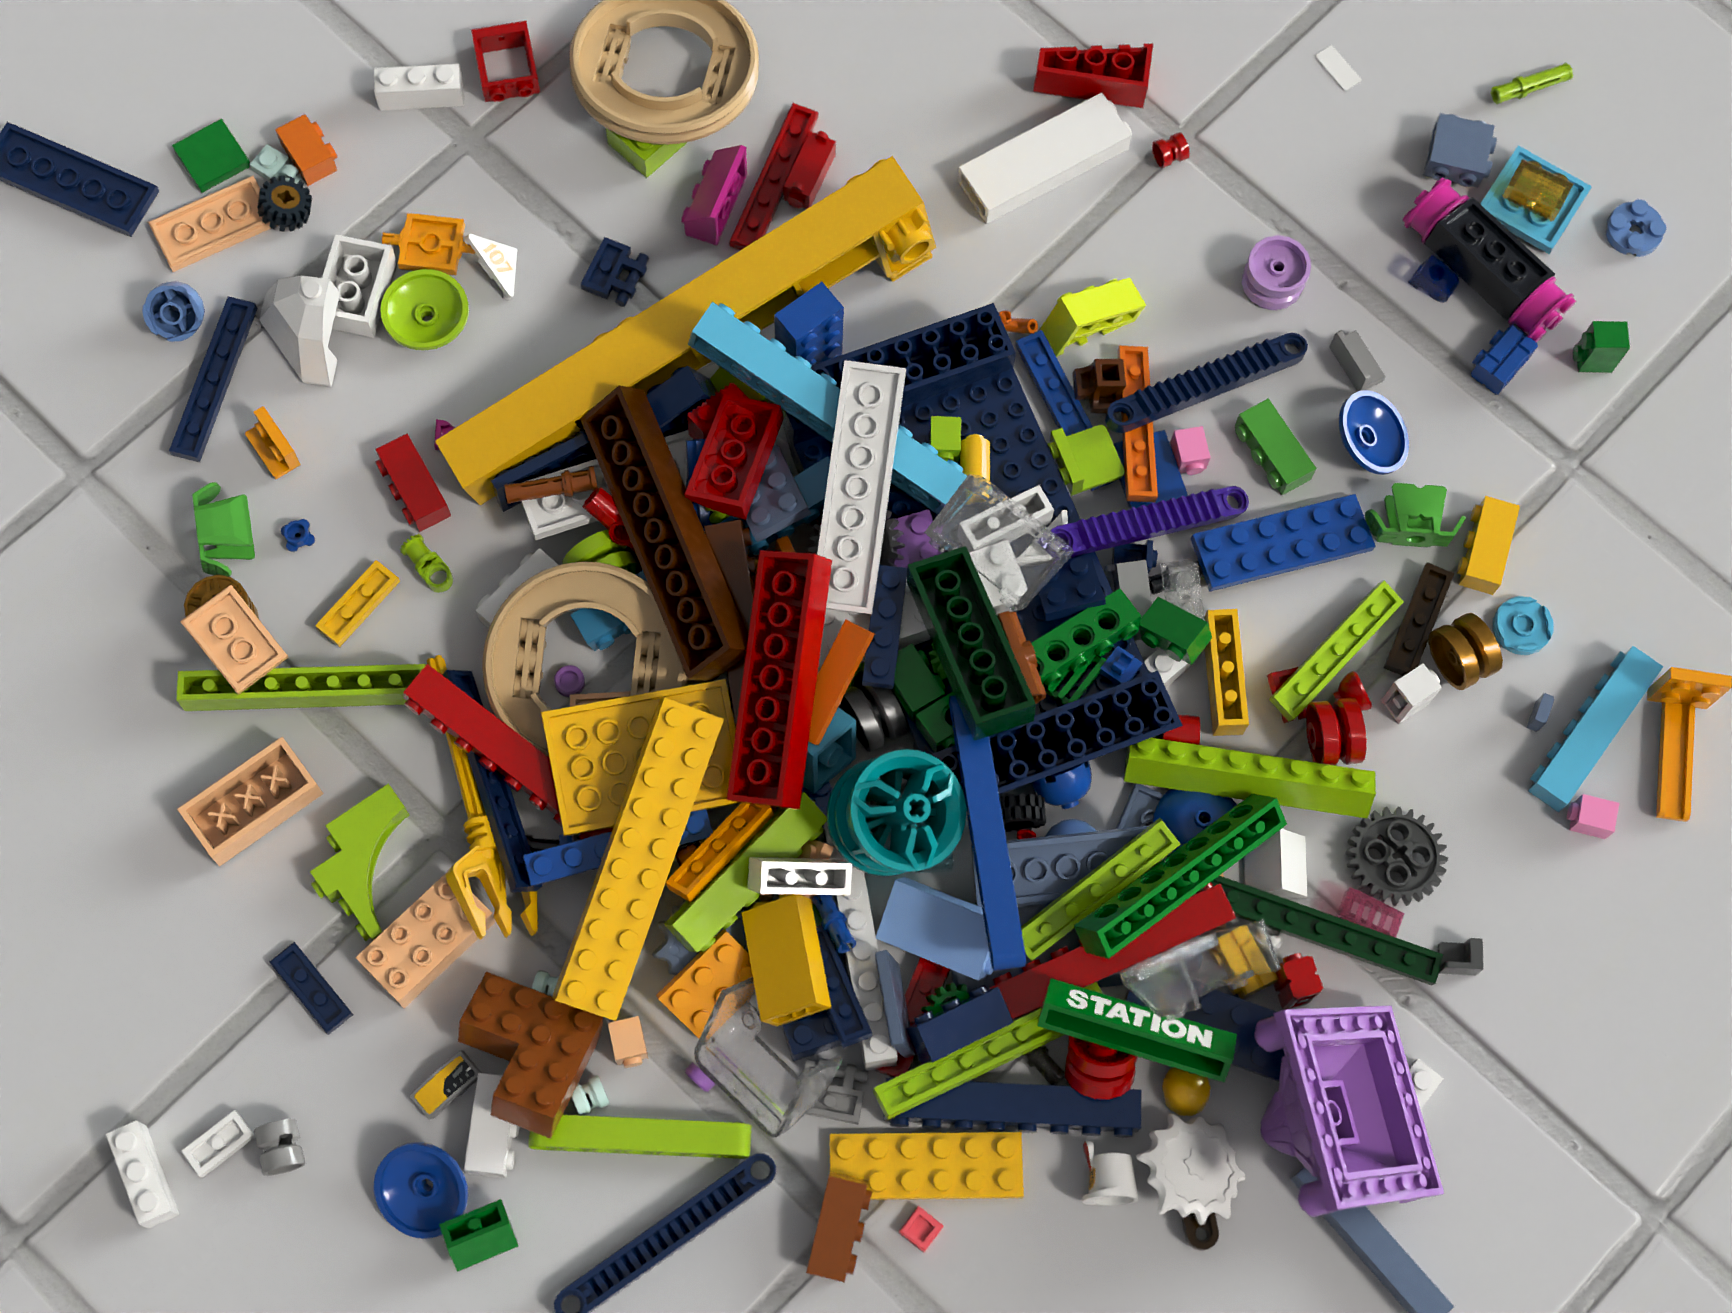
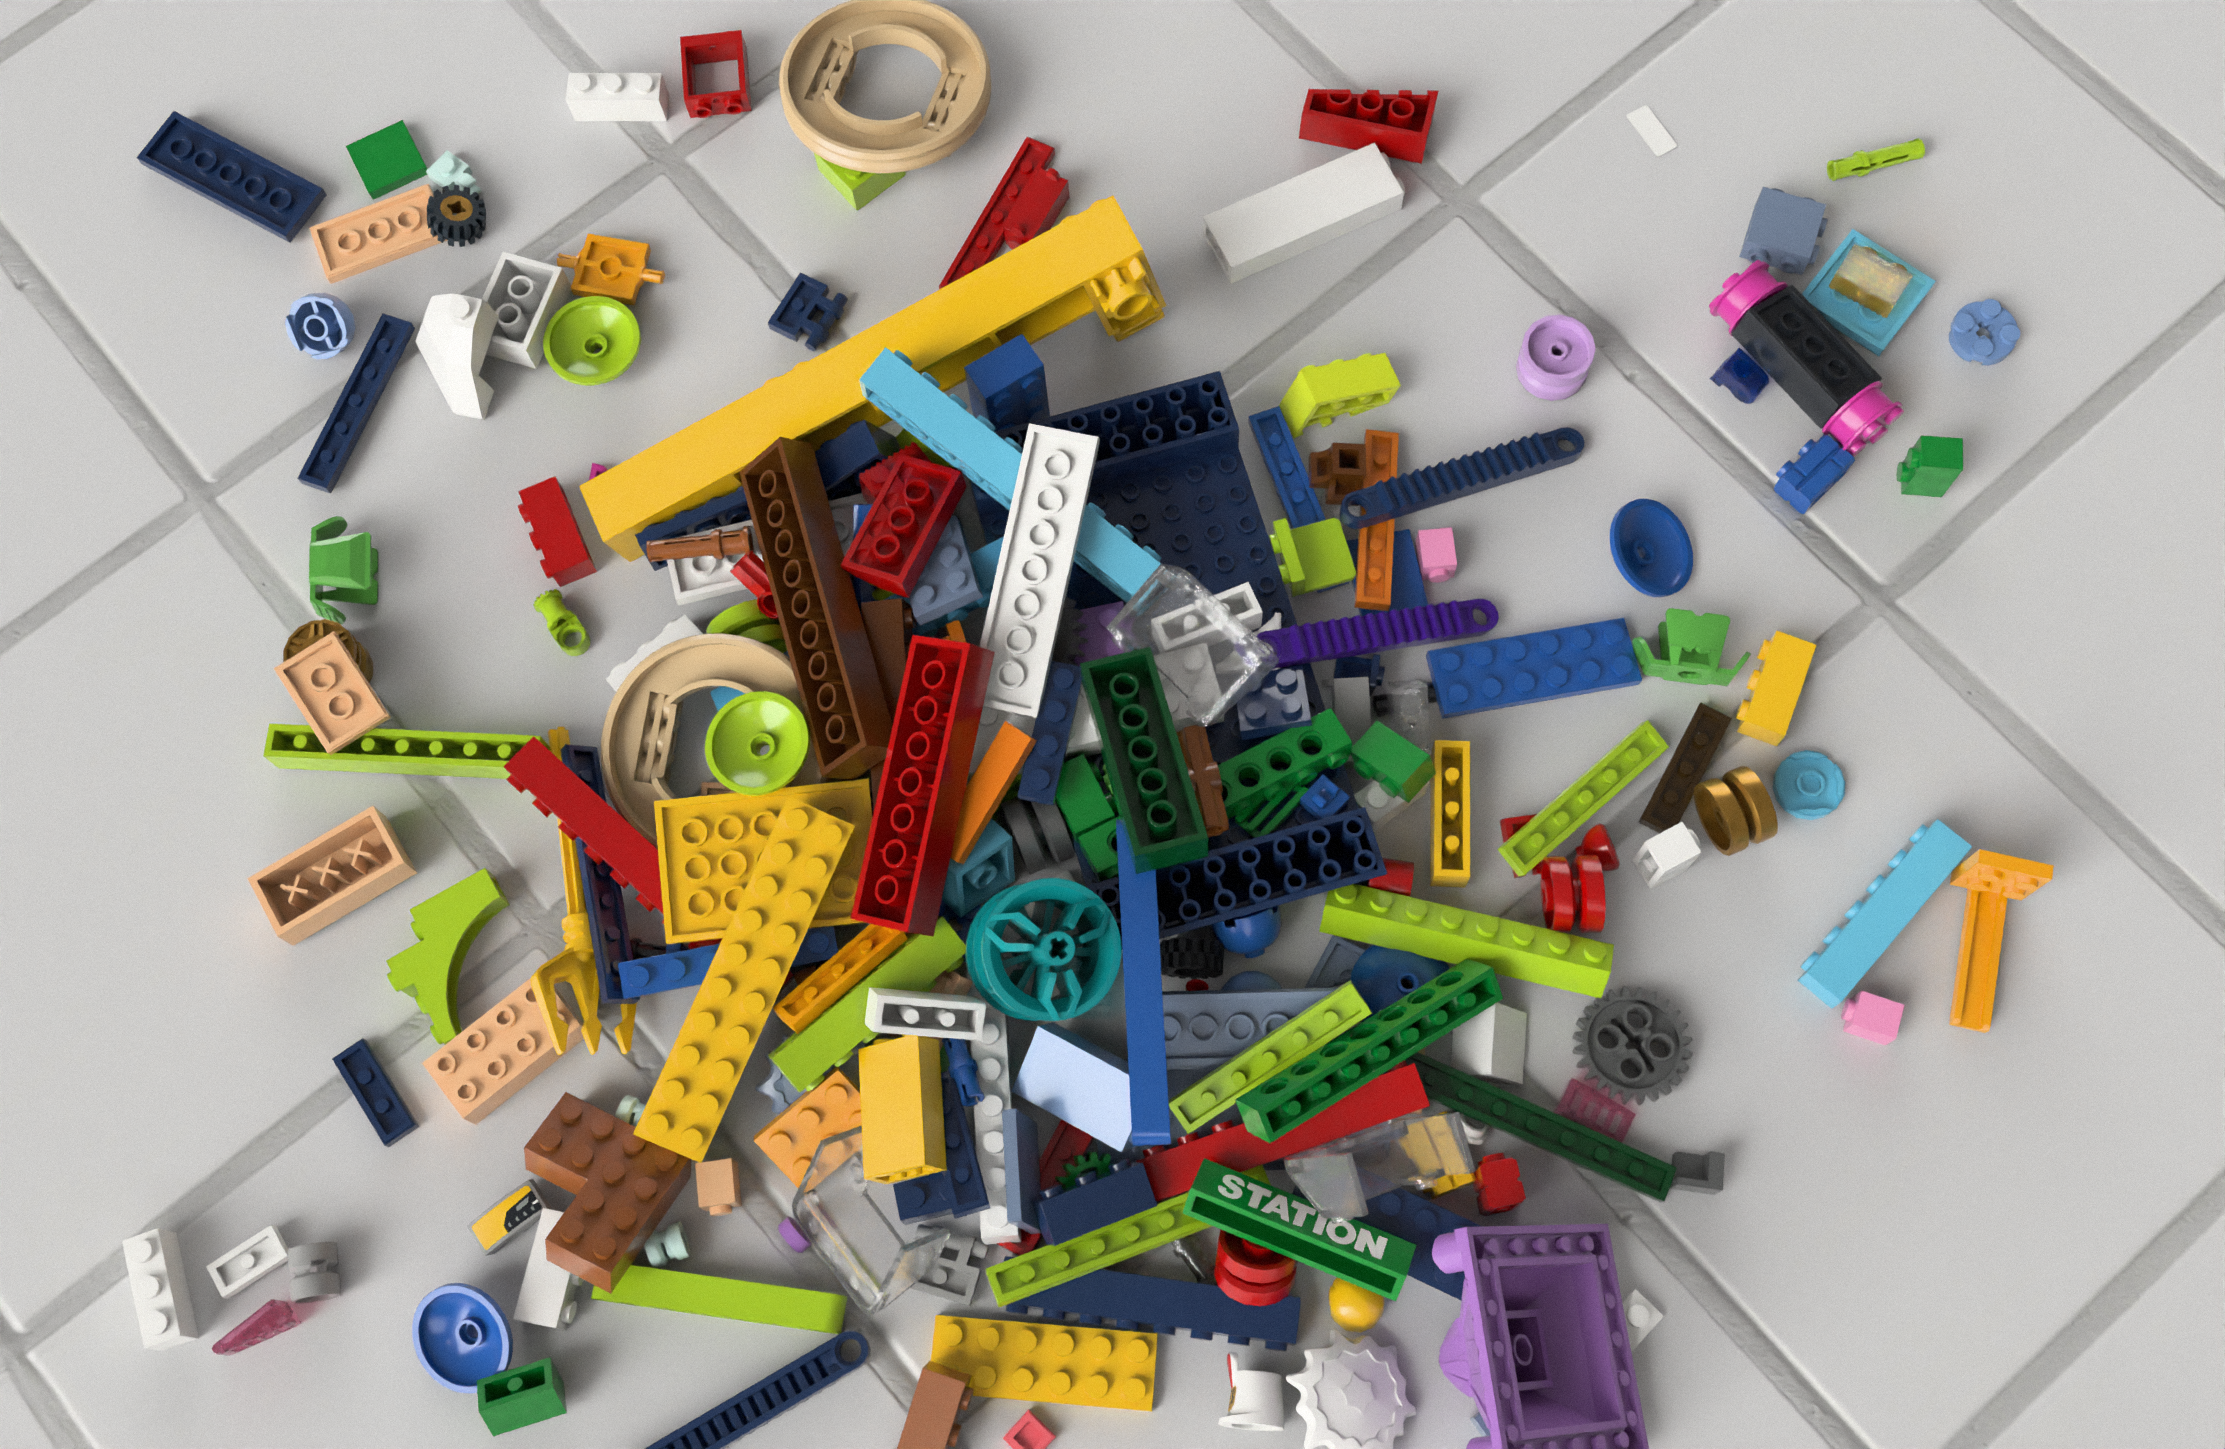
camera: 15 degrees right, 0 degrees up
(238, 1197) = (262, 1325): none -> clear pink slope
(271, 445) = (409, 479): light orange bracket -> none
(294, 527) = (421, 573): blue plate -> none
(306, 149) = (488, 159): orange brick -> none
(357, 603) = (480, 662): yellow plate -> none
(497, 261) = (679, 292): white tile -> none
(569, 680) = (698, 767): medium lavender tile -> none
(615, 640) = (741, 732): none -> lime dish
(716, 194) = (929, 233): dark pink slope -> none
(946, 437) = (1149, 521): lime brick -> none
(975, 456) = (1181, 545): yellow brick -> none
(1018, 325) = (1250, 399): orange arm -> none
(1170, 150) = (1448, 212): red wheel -> none
(1274, 447) = (1534, 557): bright green brick -> none
(1356, 360) = (1640, 464): light grey panel -> none
(1540, 712) = (1820, 889): sand blue tile -> none

